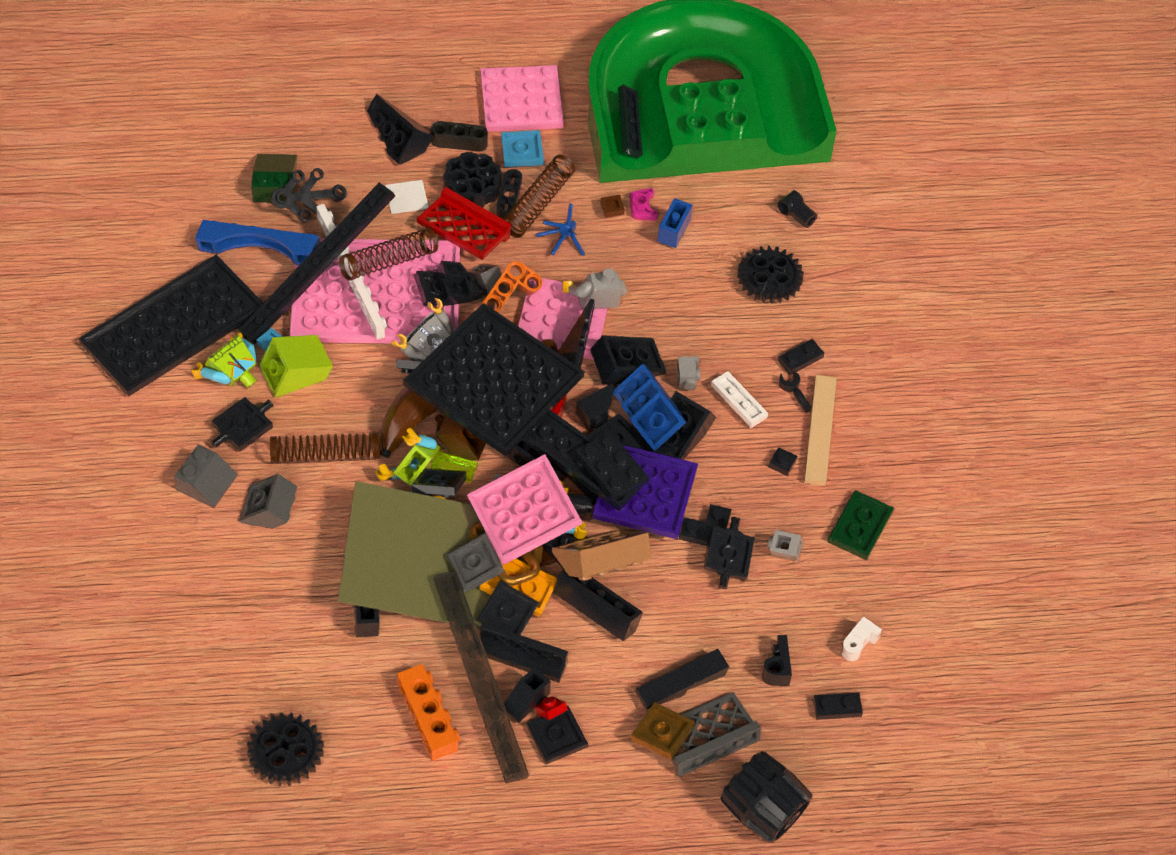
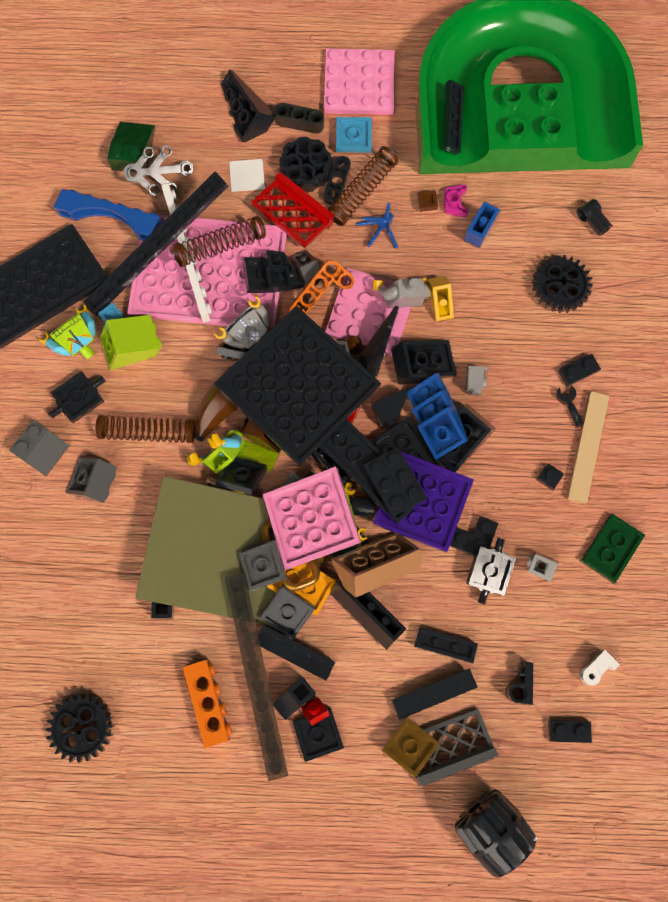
camera: 10 degrees right, 20 degrees up
(640, 298) = (441, 298): none -> yellow slope
(689, 632) = (446, 645): none -> black plate
(739, 399) = (518, 410): white plate -> none

